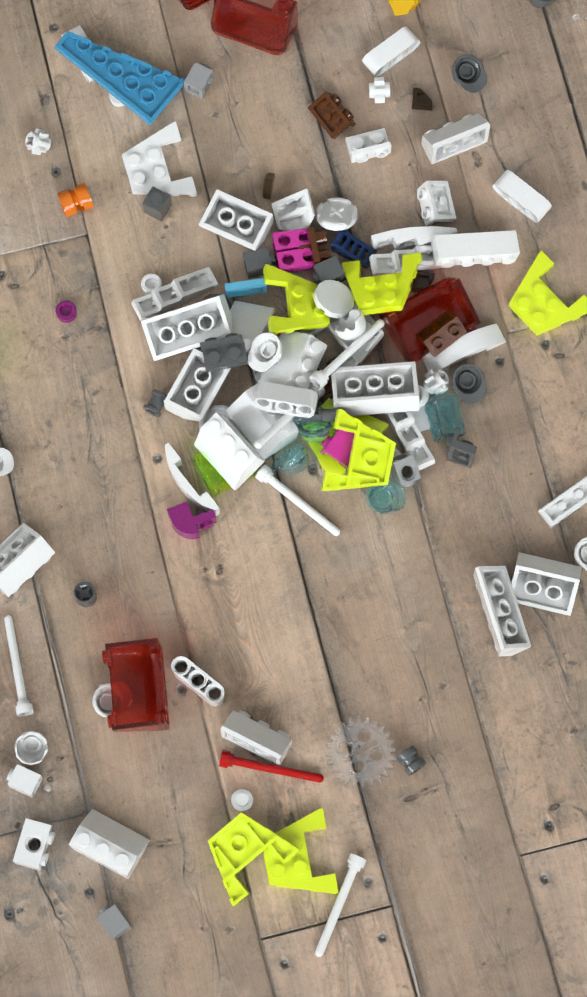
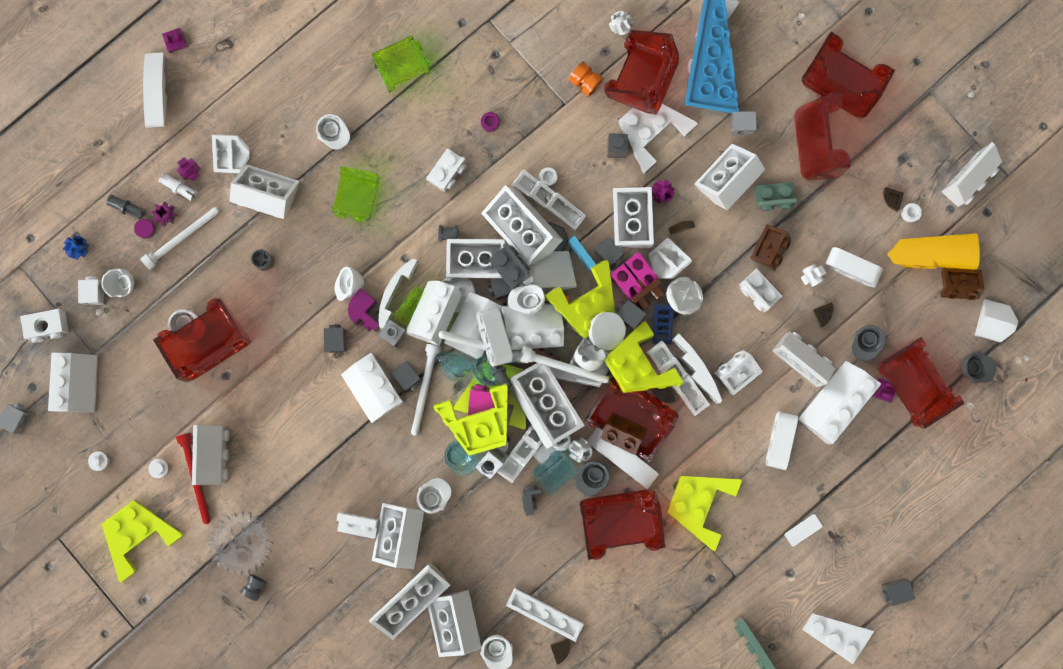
camera: 60 degrees right, 10 degrees up
(67, 473) = (355, 194): none -> clear neon green panel
(92, 375) = (446, 170): none -> white bracket
(98, 142) = (646, 71): none -> clear red windscreen
(154, 522) = (348, 283): none -> white hat
(194, 671) = (239, 394): white beam -> none
(202, 858) = (98, 461): none -> white tile
(203, 561) = (334, 339): none -> dark grey brick
(225, 182) = (662, 191): none -> magenta gear
(228, 502) = (392, 333): none -> light grey brick
(238, 379) = (499, 288): none -> dark grey brick
(239, 845) = (120, 486): neon yellow wing -> none
(243, 117) = (730, 176): none -> white slope
(271, 549) = (372, 387): none -> white slope
(278, 511) = (406, 377): none -> dark grey brick
(284, 87) = (775, 195): none -> sand green bracket
(355, 864) = (151, 584): white piece -> none
(400, 628) = (357, 525): none -> white bracket
(409, 541) = (433, 495): none -> white hat
(431, 595) = (398, 536): none -> white slope
(475, 248) = (713, 425): white brick -> none
(513, 127) = (839, 402): none -> white slope
(522, 83) = (885, 391): none -> magenta tile
(526, 376) = (622, 521): none -> clear red windscreen
(531, 47) = (919, 384): none -> clear red windscreen

